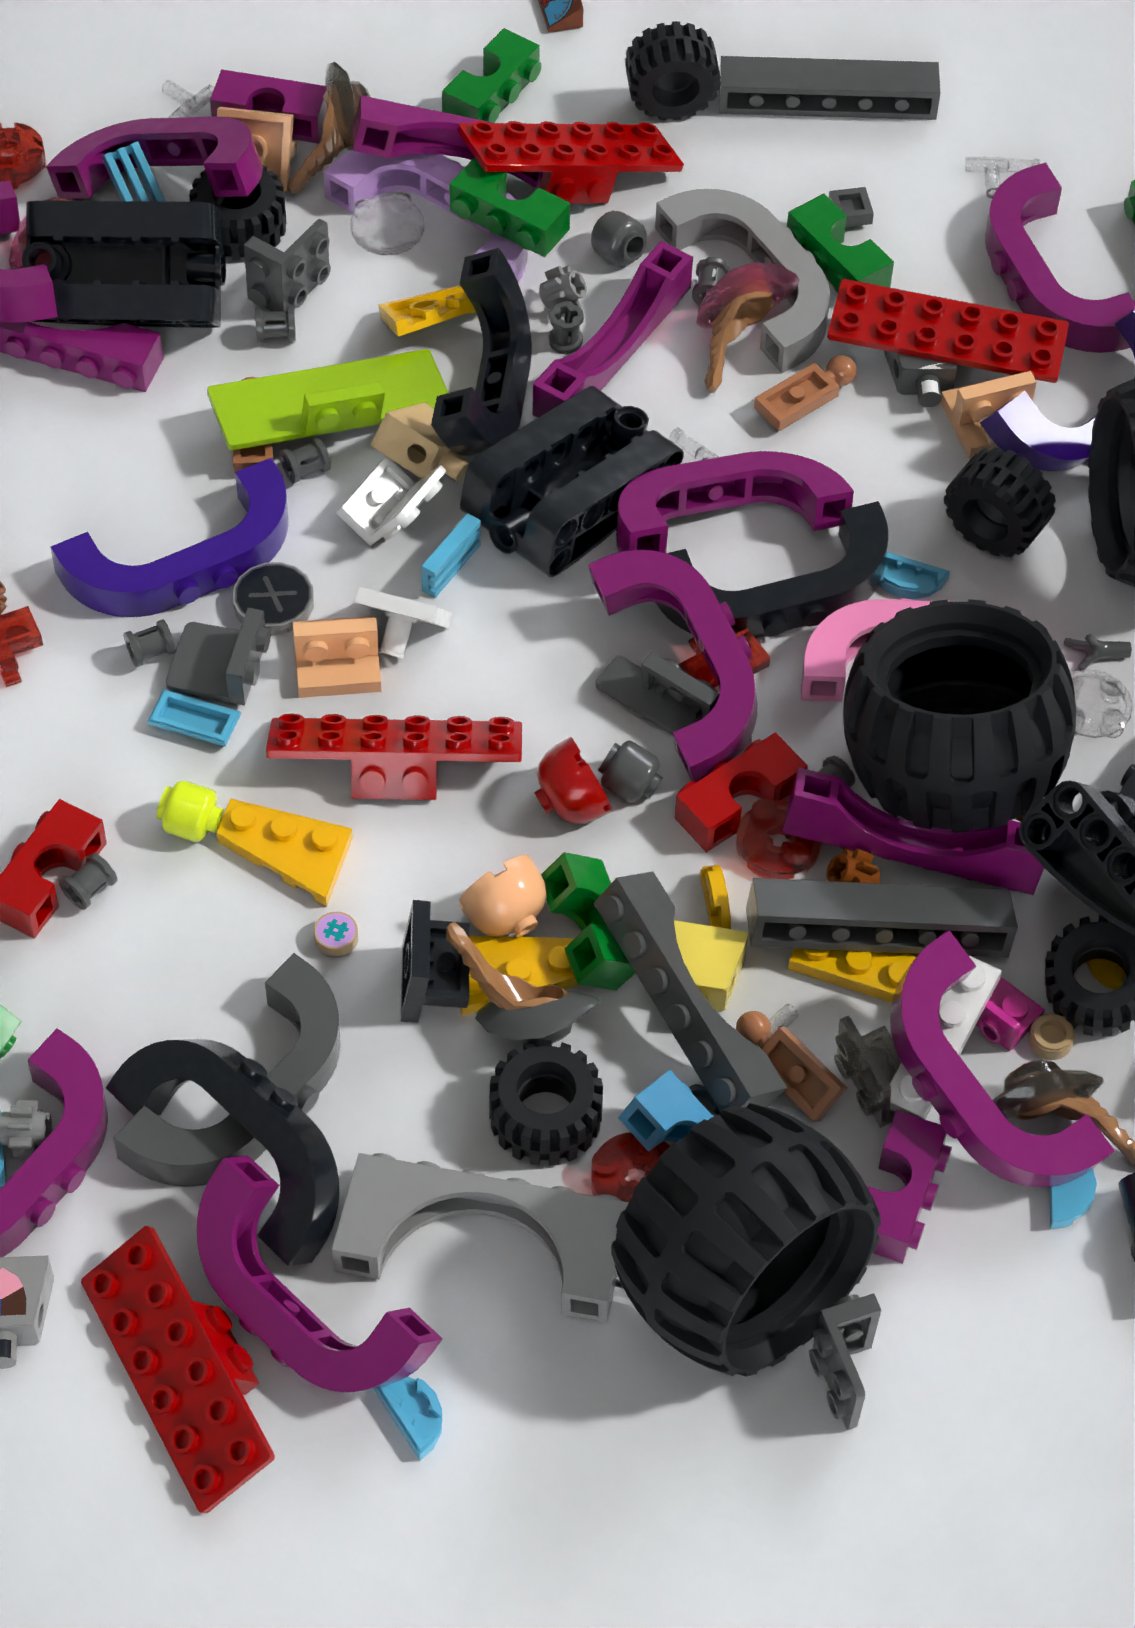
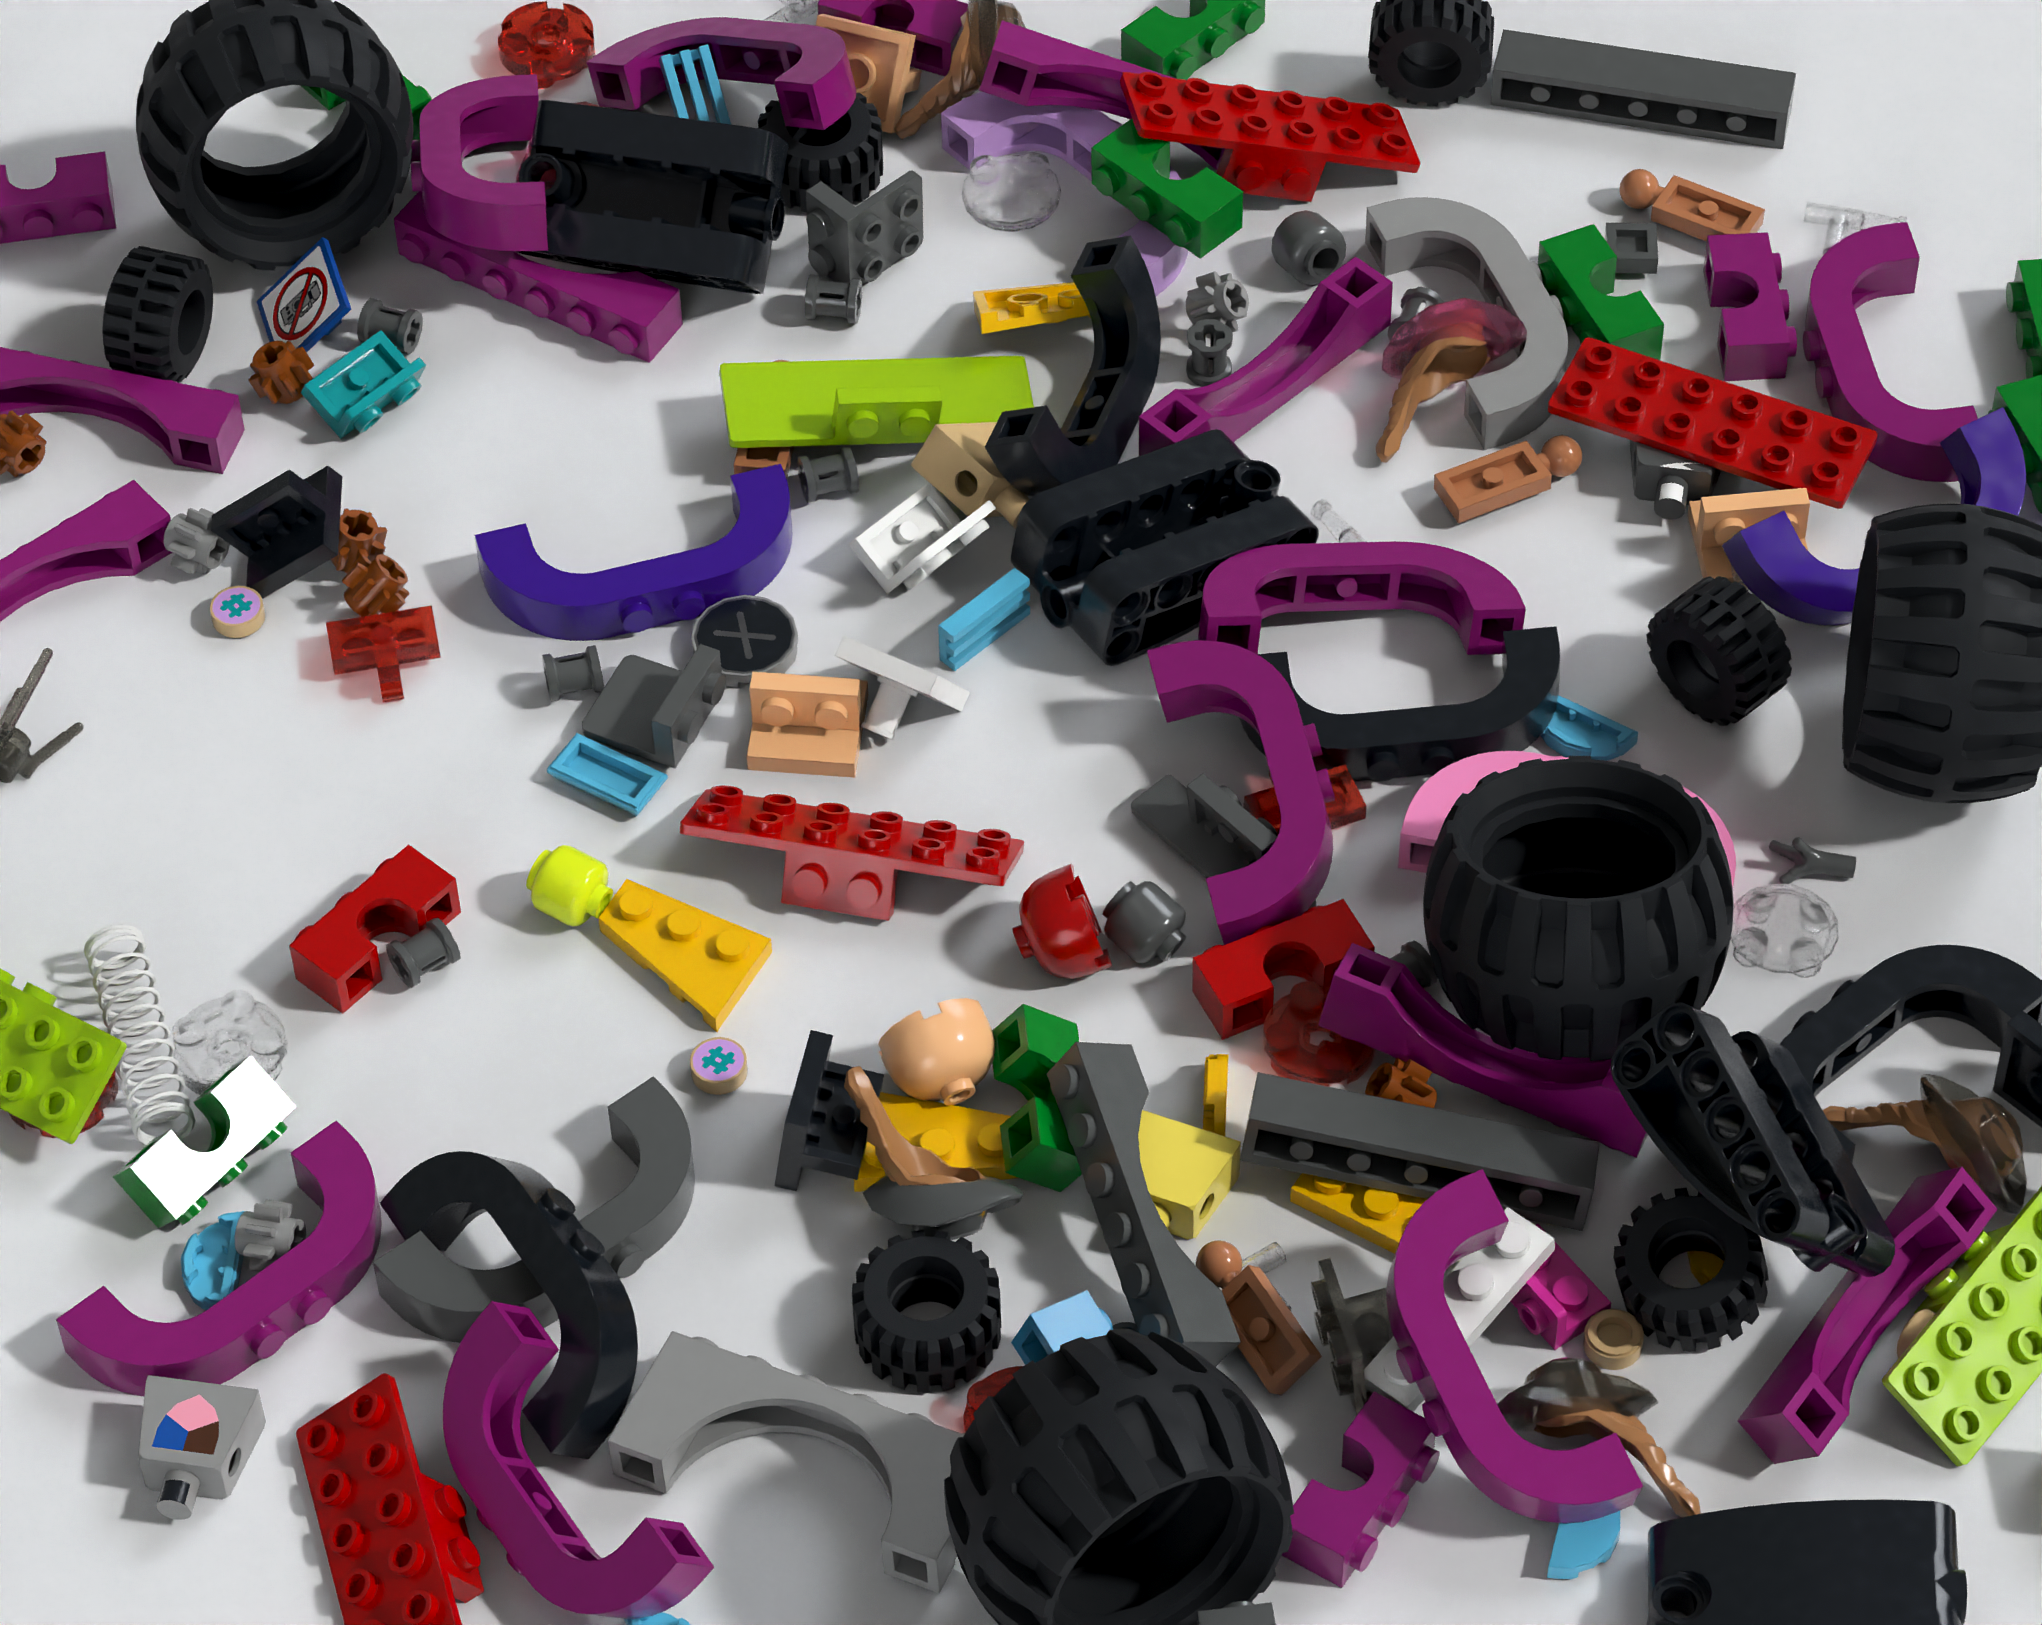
camera: 15 degrees right, 5 degrees down
(887, 172) = (1690, 206): none -> nougat plate
(957, 260) = (1754, 334): none -> magenta arch

